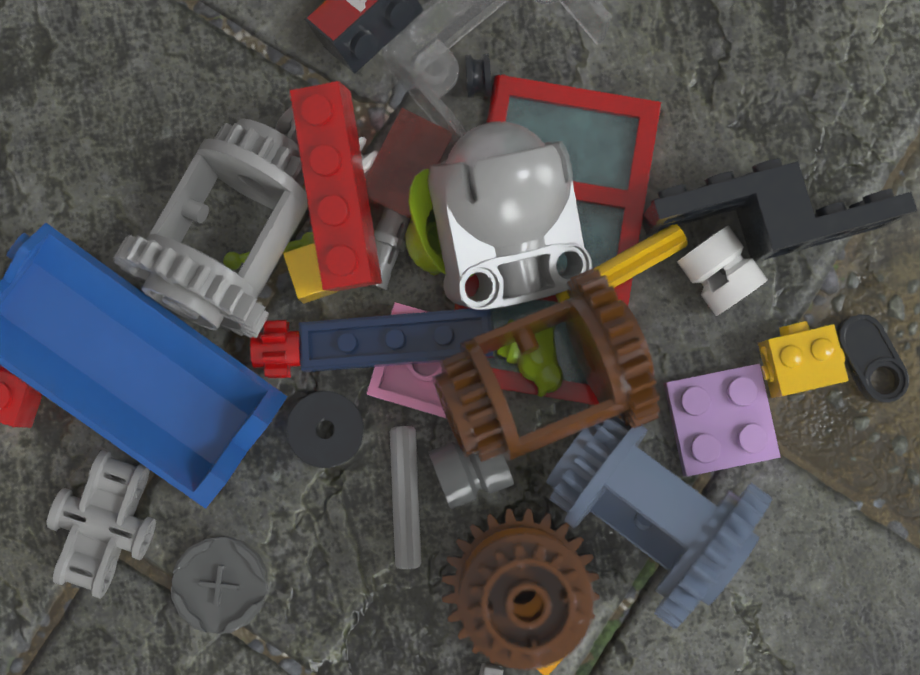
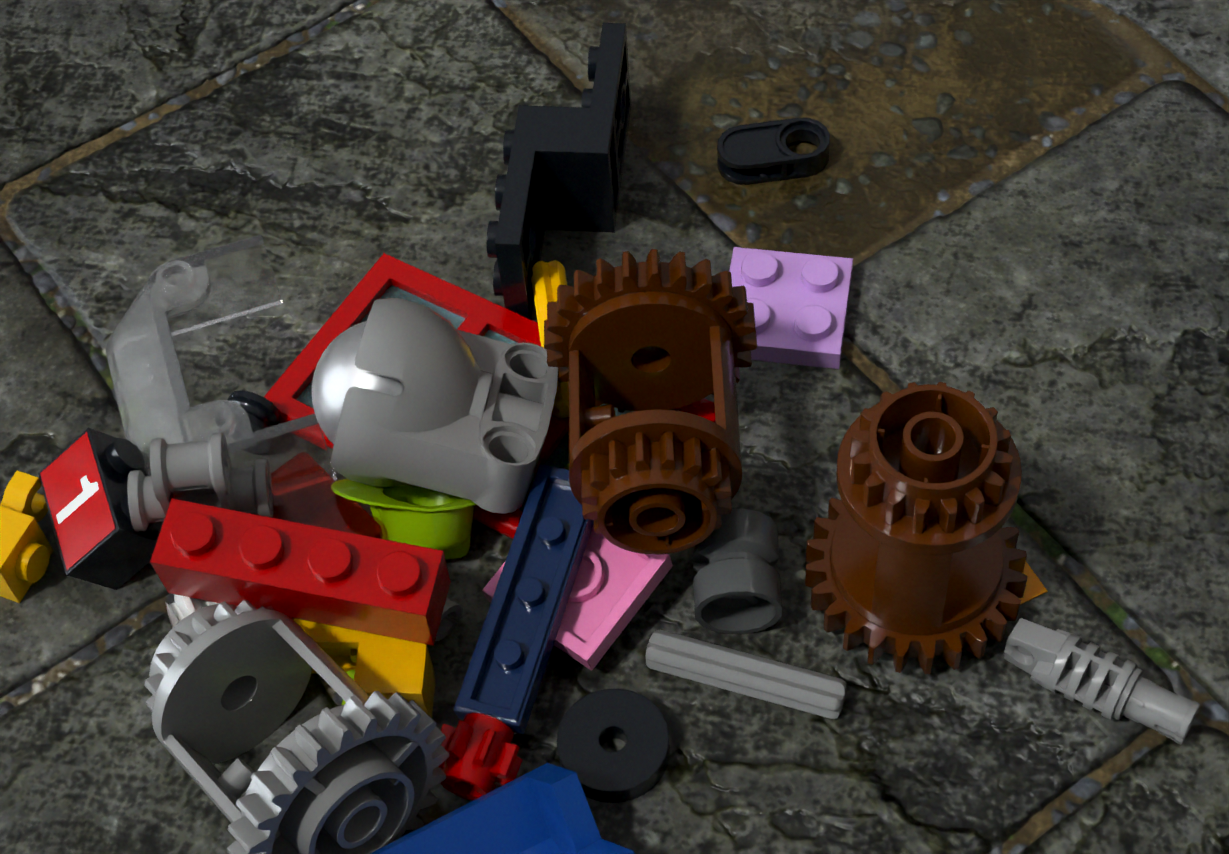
camera: 65 degrees left, 30 degrees down
(372, 87) = (200, 475): none -> light grey axle
(658, 514) = (933, 315): sand blue piece -> none
(720, 252) = (586, 235): white wheel -> none
(802, 359) = (746, 202): yellow head -> none

